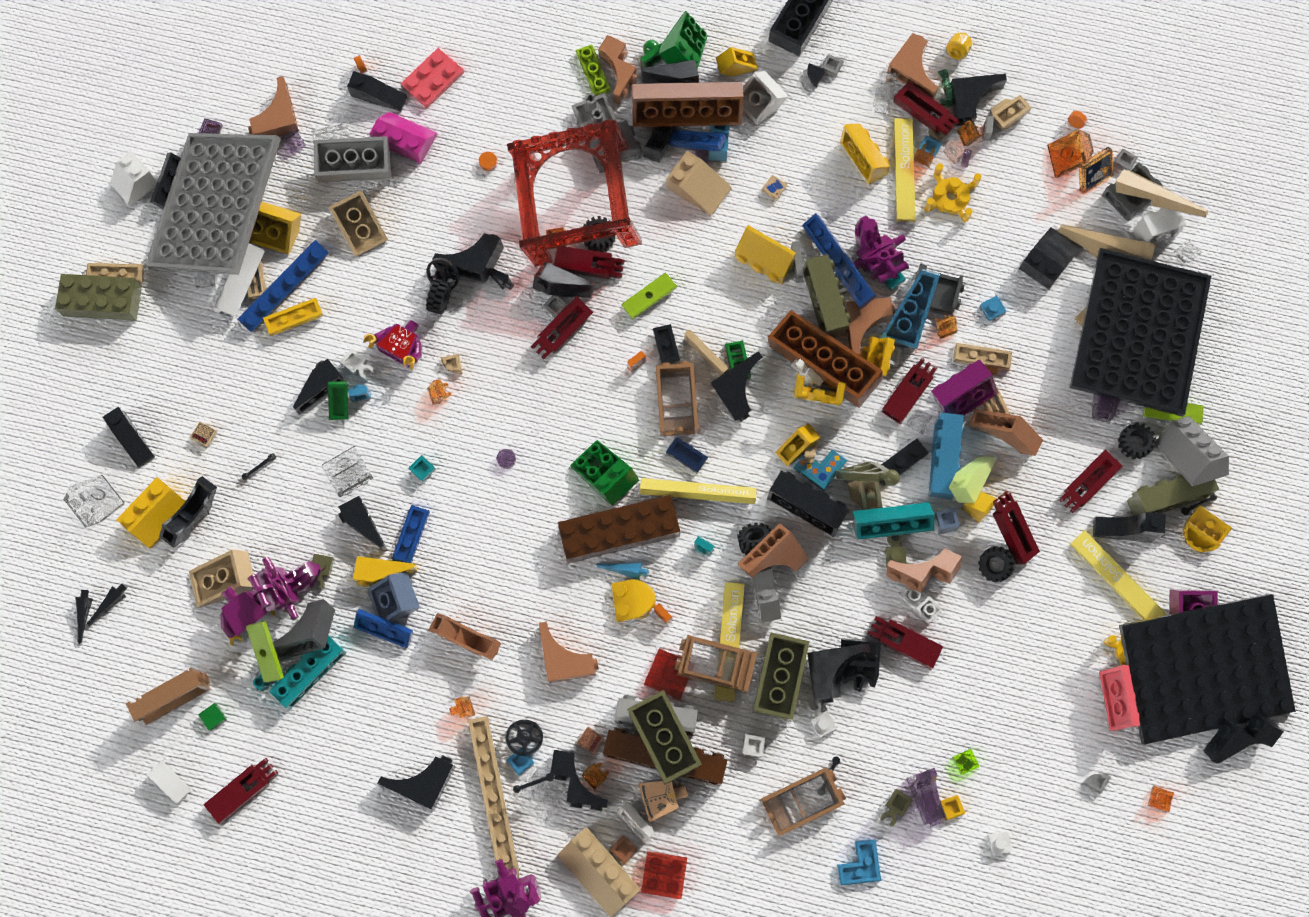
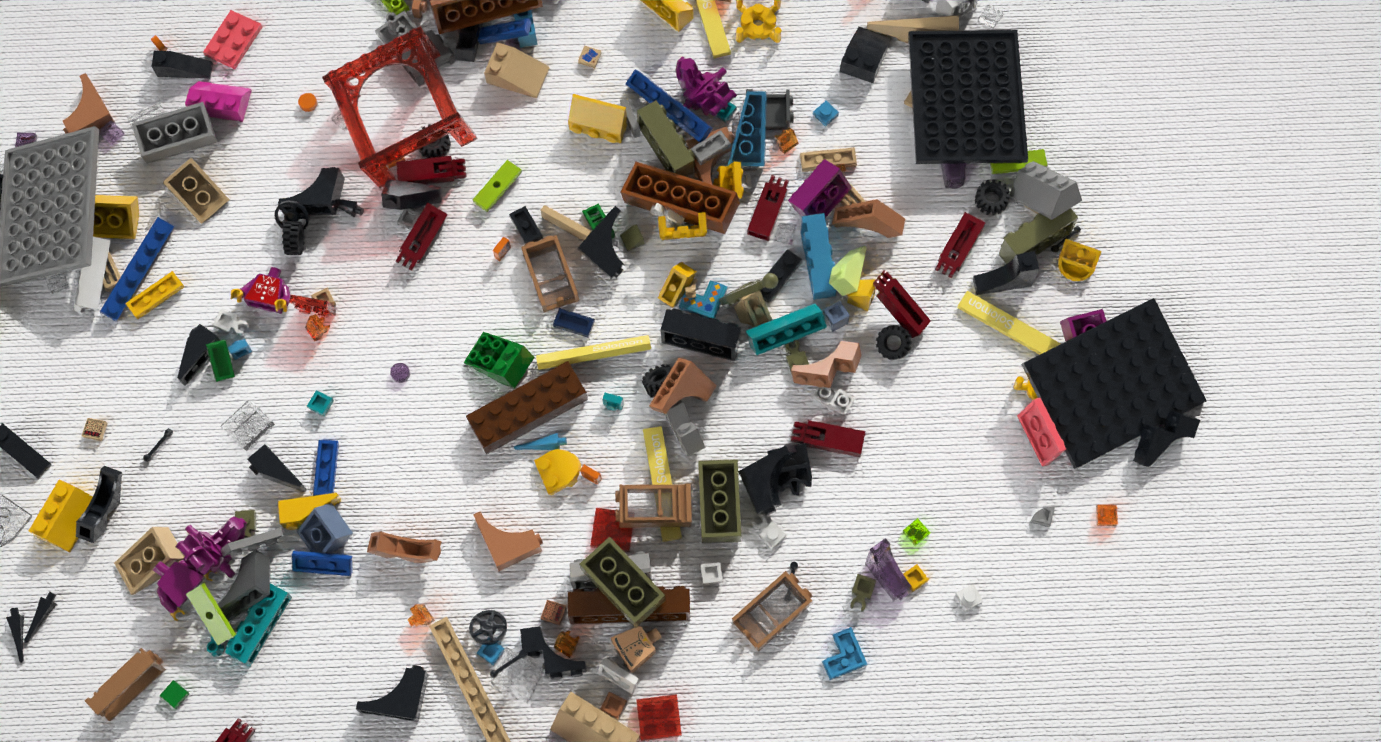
camera: 15 degrees left, 5 degrees down
(321, 592) = (251, 543): none -> light grey plate
(434, 368) = (307, 305): none -> clear red plate
(766, 385) = (632, 238): none -> olive slope
(869, 315) = (710, 147): none -> light grey plate

